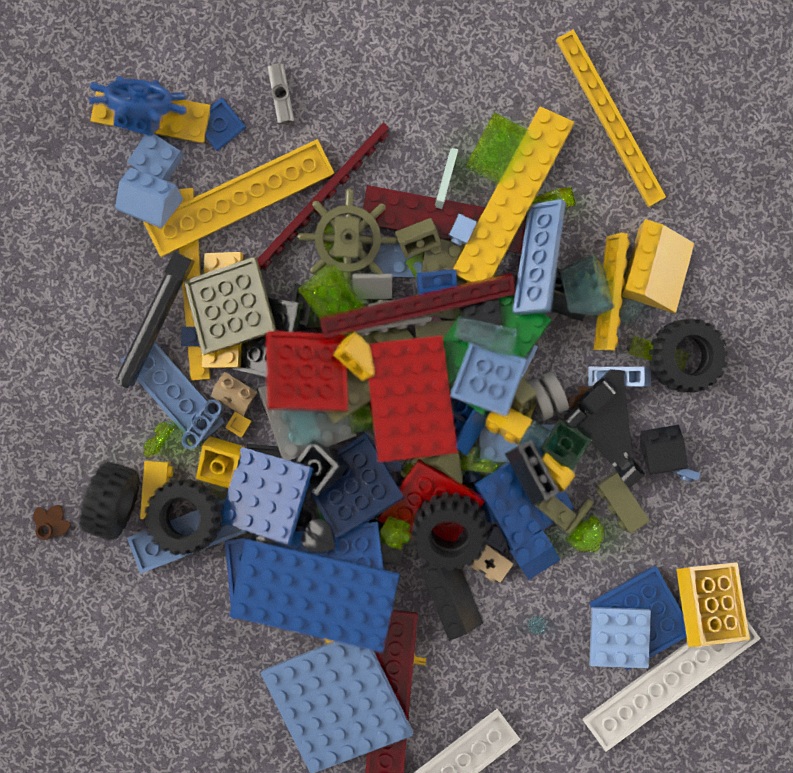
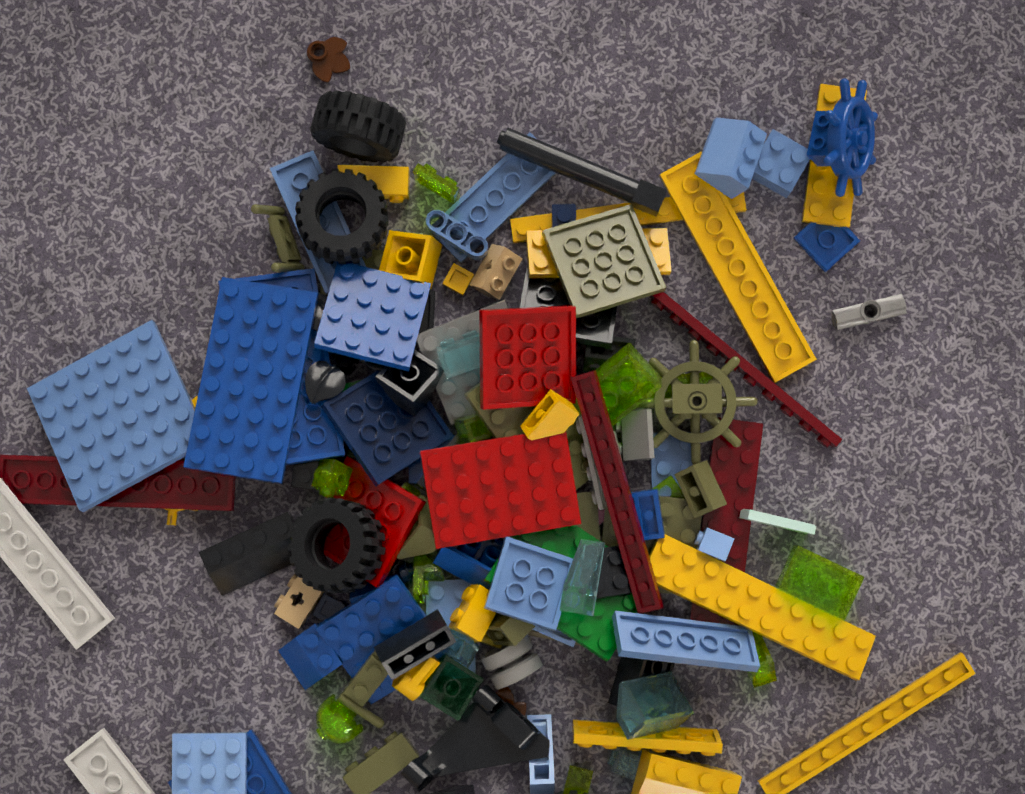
camera: 80 degrees right, 5 degrees down
(198, 564) = (283, 236): none -> olive plate
(541, 625) = (215, 666): clear light blue plate -> none

